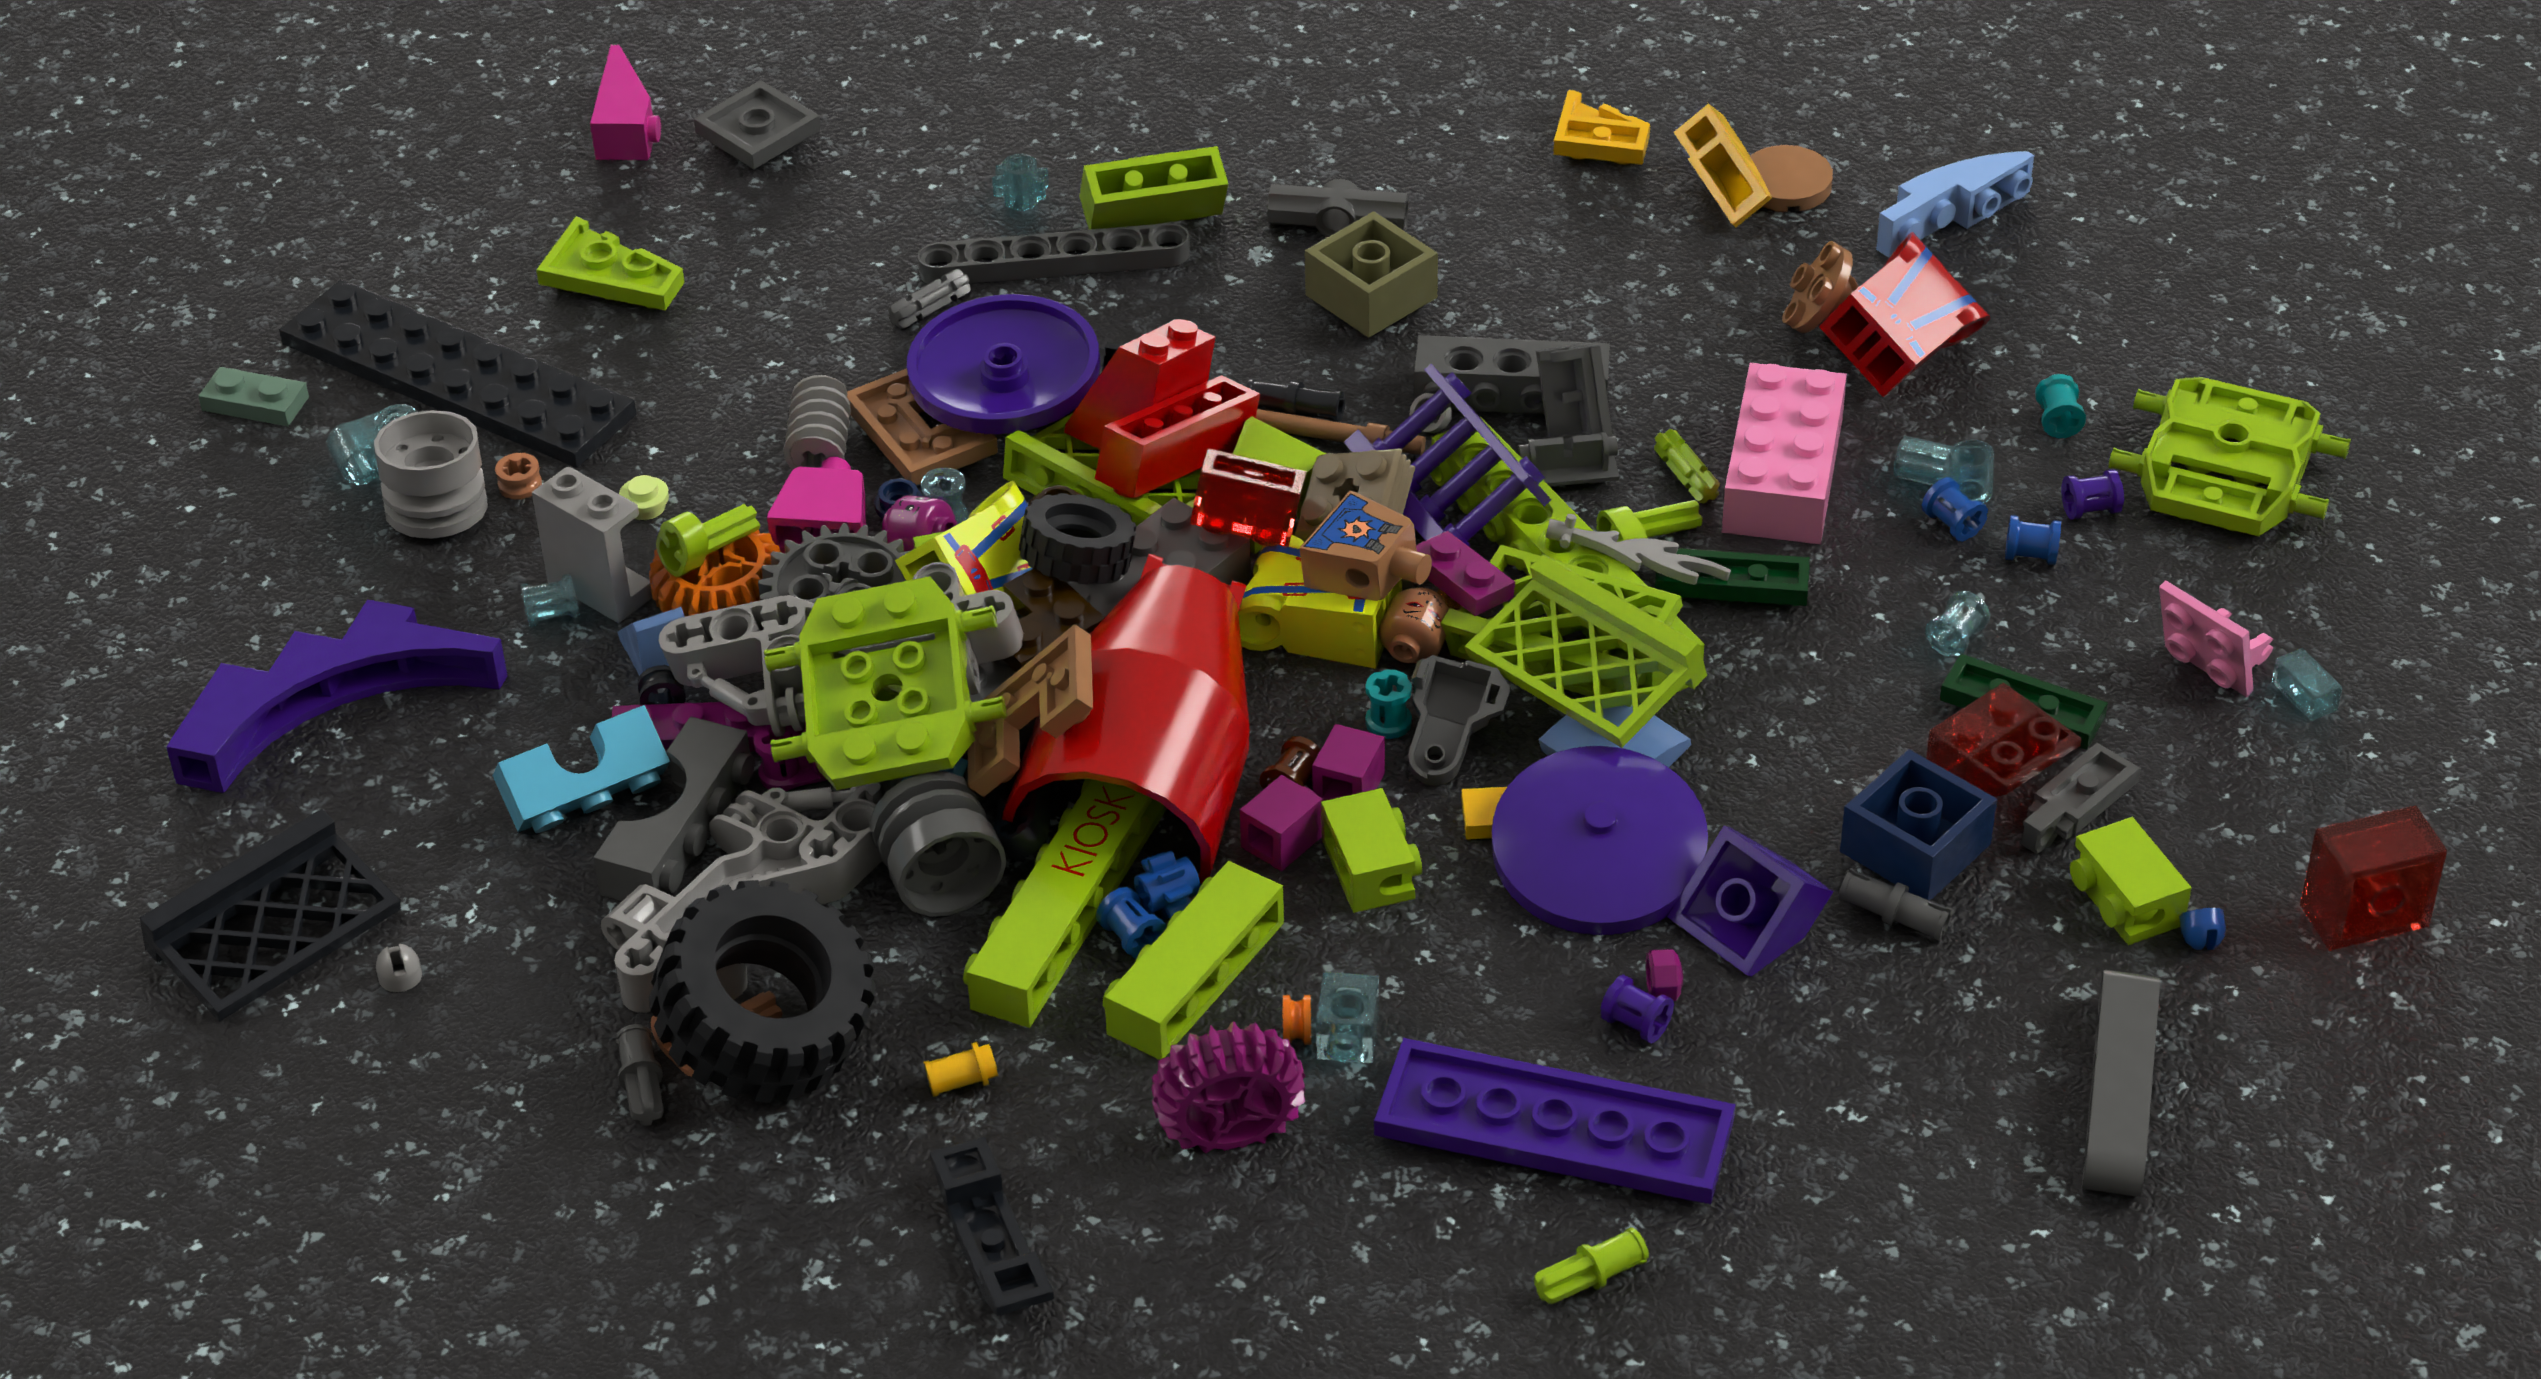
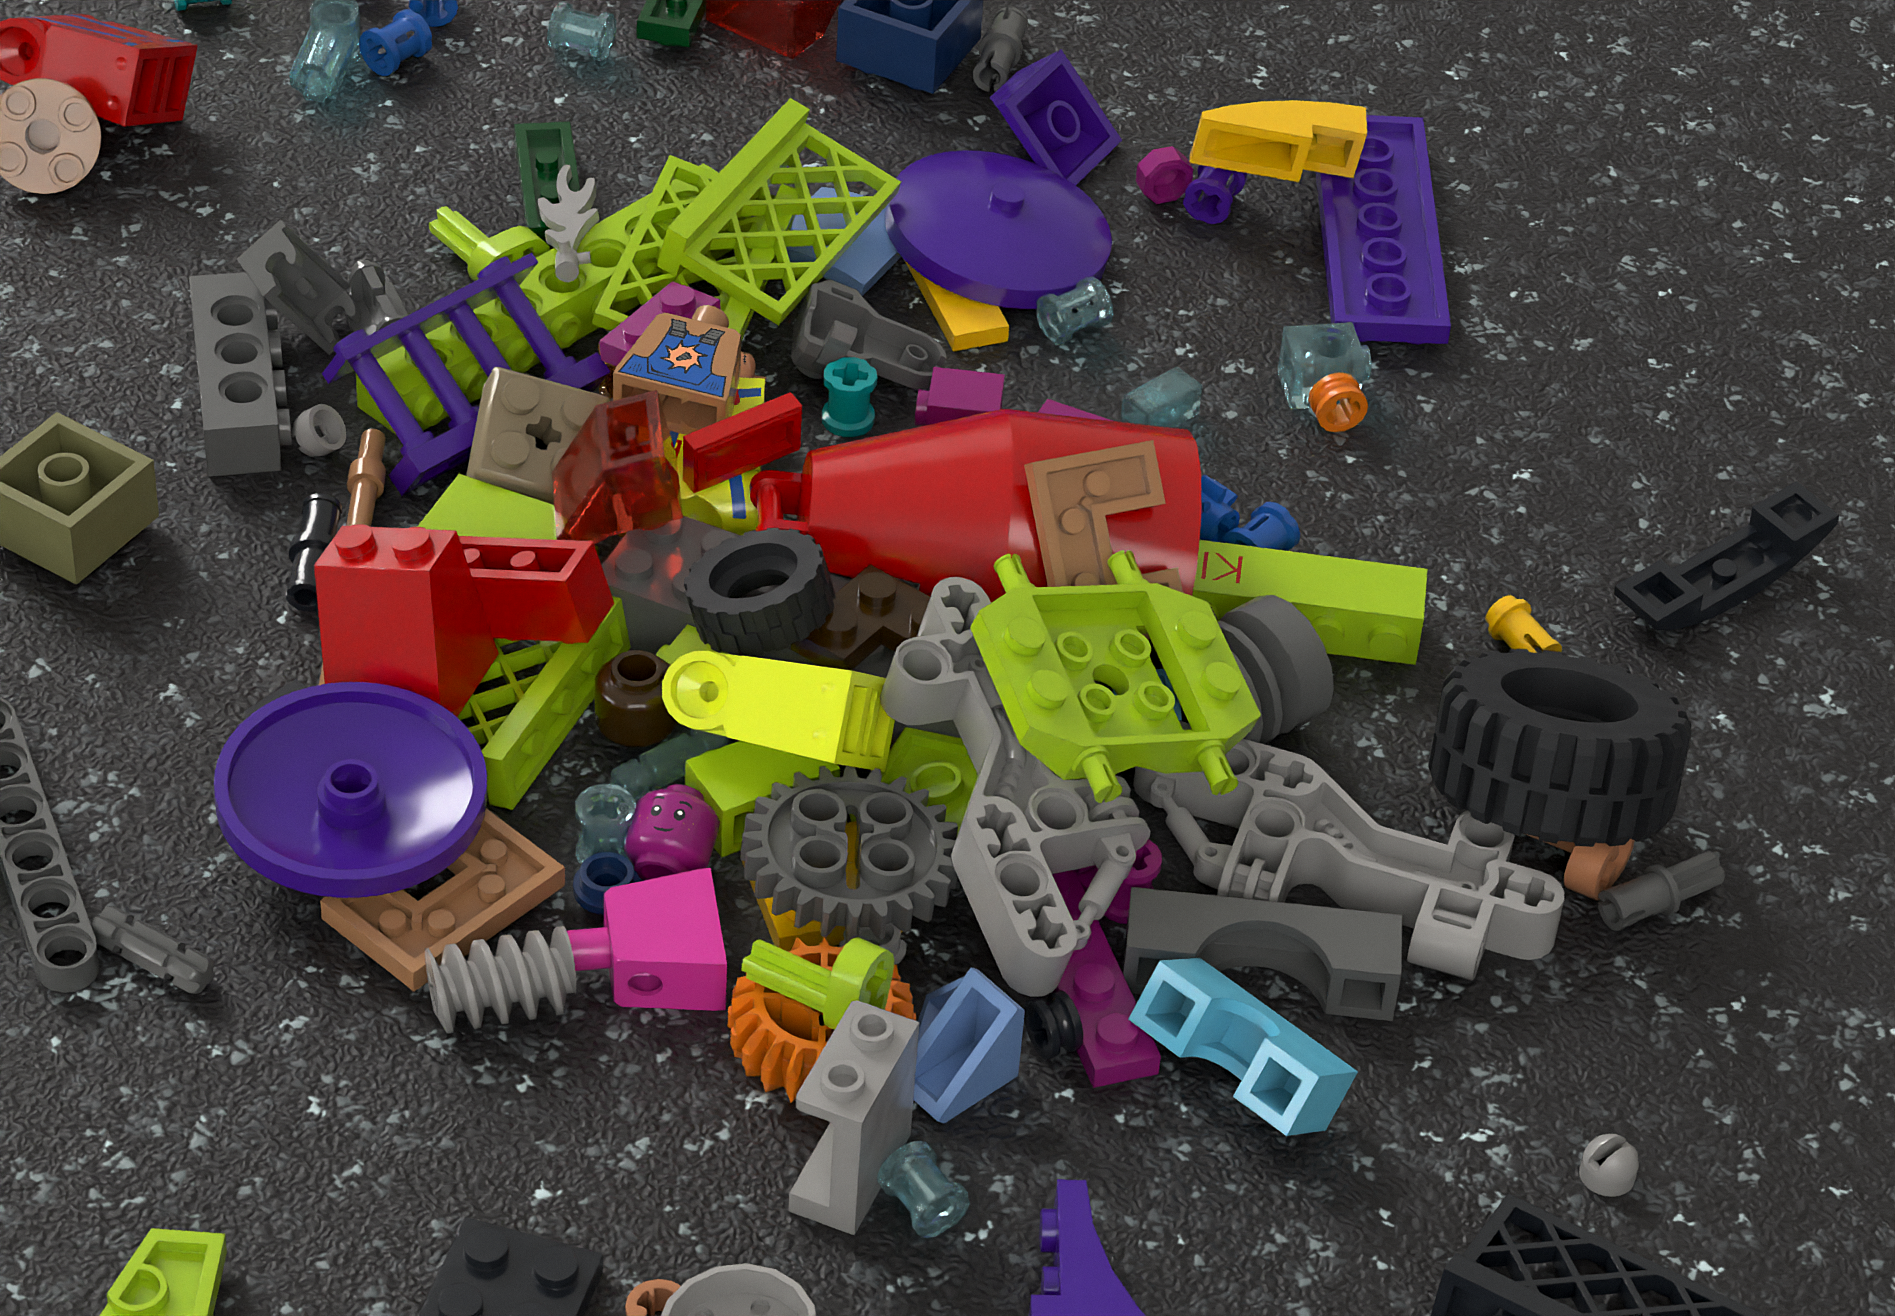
camera: 110 degrees left, 0 degrees up
(649, 495) = (666, 1156): yellowish green plate -> none
(1193, 960) = (1322, 484): lime brick -> none
(1228, 1088) = (1486, 402): magenta gear -> none
(1275, 574) = (742, 442): none -> red tile
(1335, 906) = (1163, 401): none -> clear light blue piece
(1369, 849) = (1081, 372): lime brick -> none
(1473, 870) = (1097, 315): none -> clear light blue bush
(1591, 1266) = (1537, 189): lime axle -> none
(1645, 1033) = (1282, 138): none -> yellow slope
(1686, 466) = (362, 234): lime axle -> none
(1784, 453) = (336, 152): bright pink brick -> none

